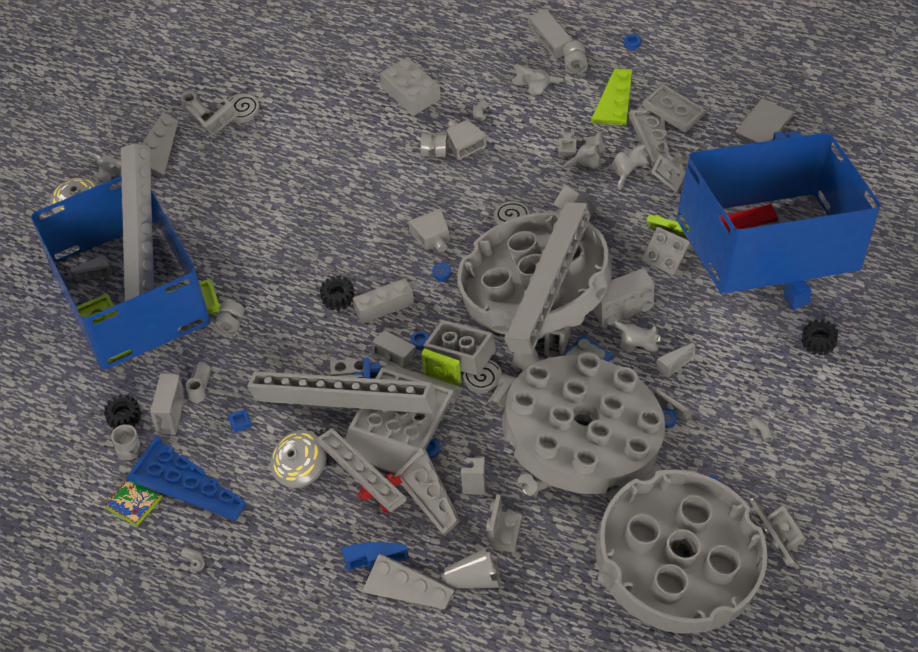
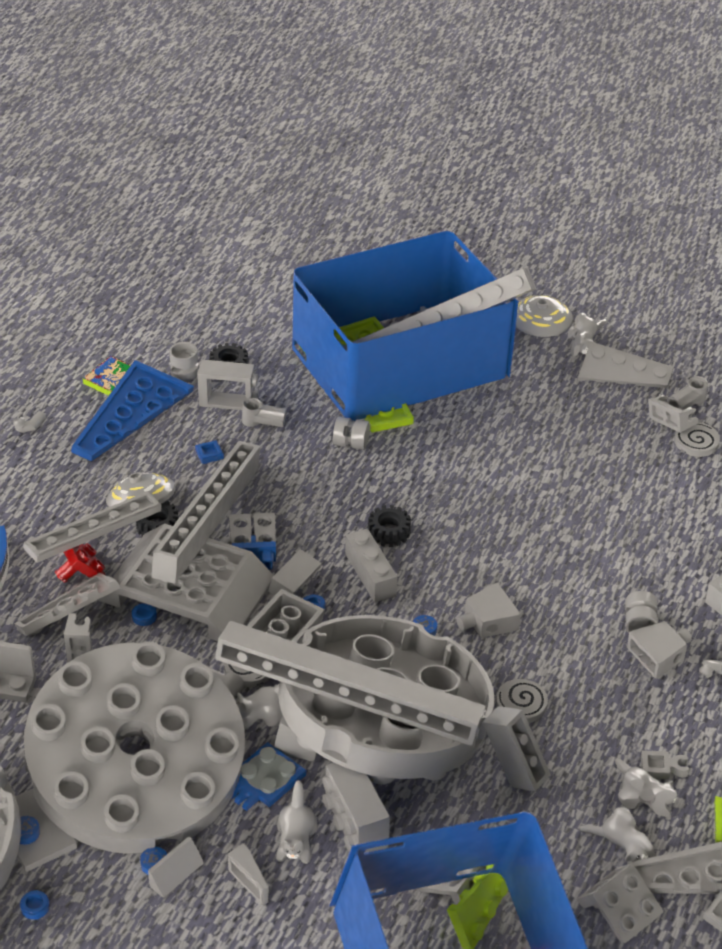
camera: 85 degrees right, 10 degrees down
(441, 367) = (252, 603): lime tile -> none

